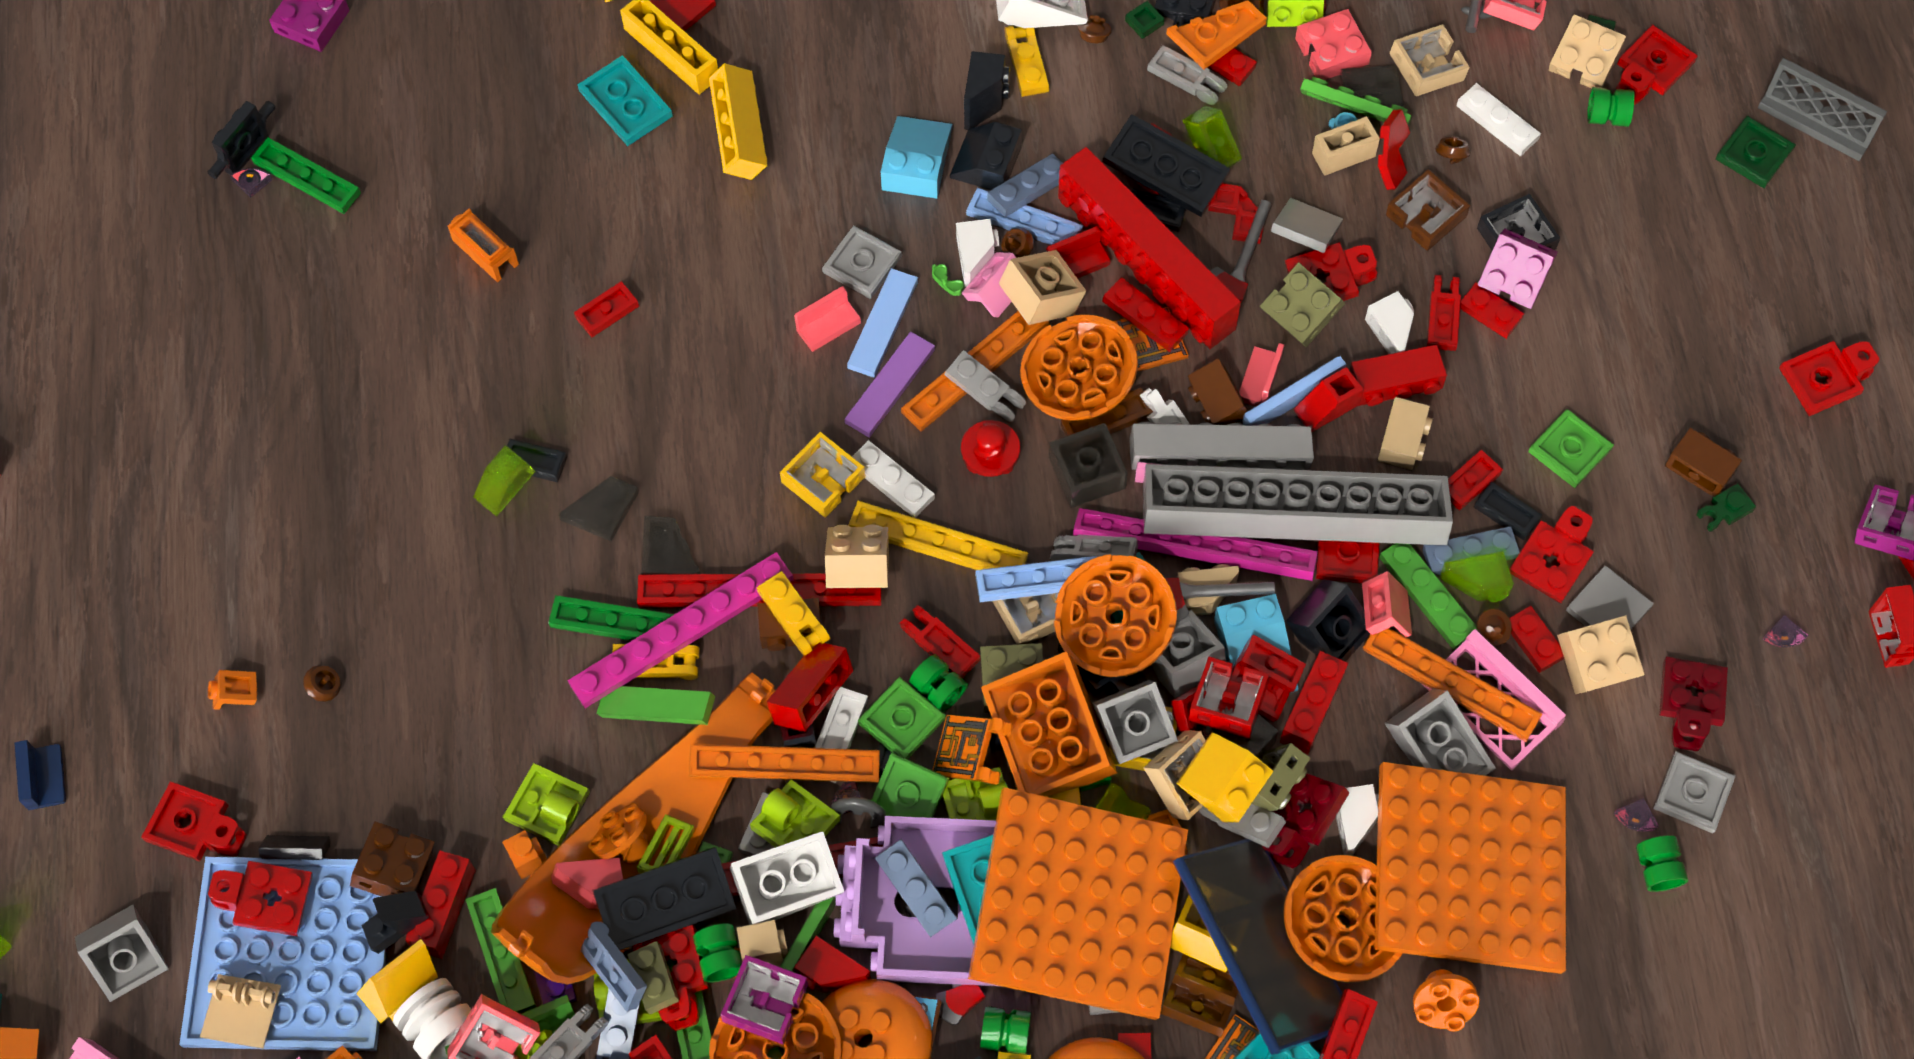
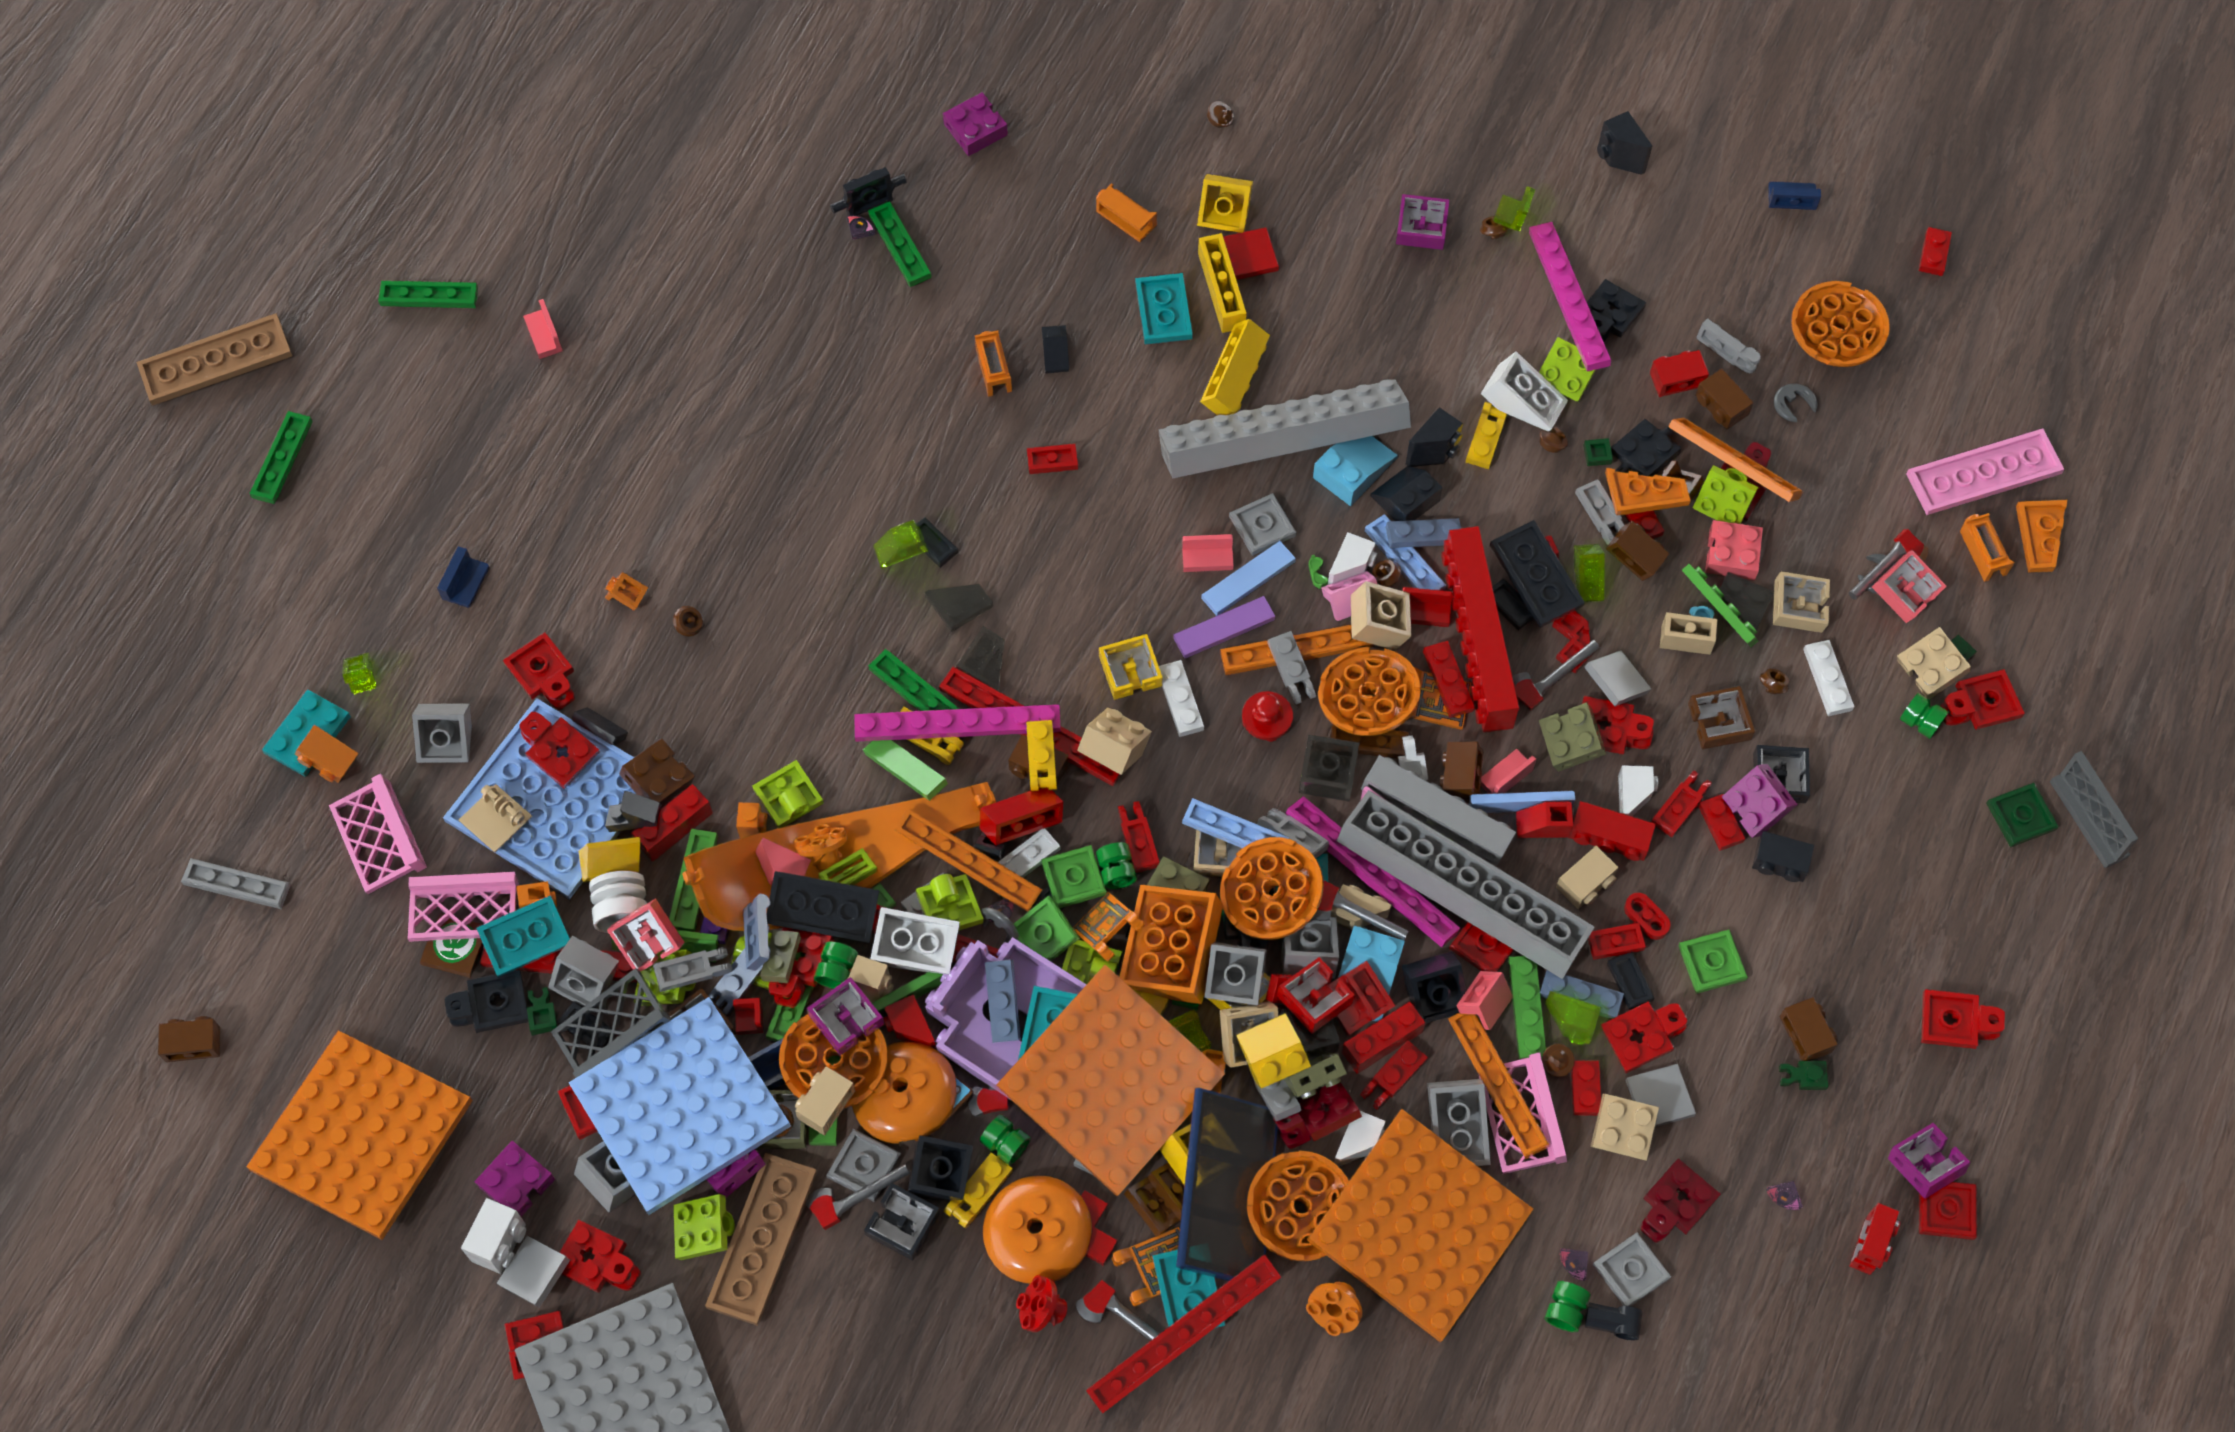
camera: 30 degrees right, 0 degrees up
(524, 25) = (1125, 213): none -> orange window
(538, 198) = (1055, 349): none -> black slope
(825, 155) = (1284, 428): none -> light grey brick
(937, 540) = (1184, 761): yellow tile -> none
(1246, 93) = (1637, 550): none -> reddish brown brick
(1346, 731) = (1395, 1073): none -> red hinge
(1390, 164) = (1729, 644): red tile -> none
(1483, 437) = (1649, 915): none -> red plate
(1571, 311) = (1782, 857): none -> black brick
(1719, 847) = (1622, 1321): none -> black piece

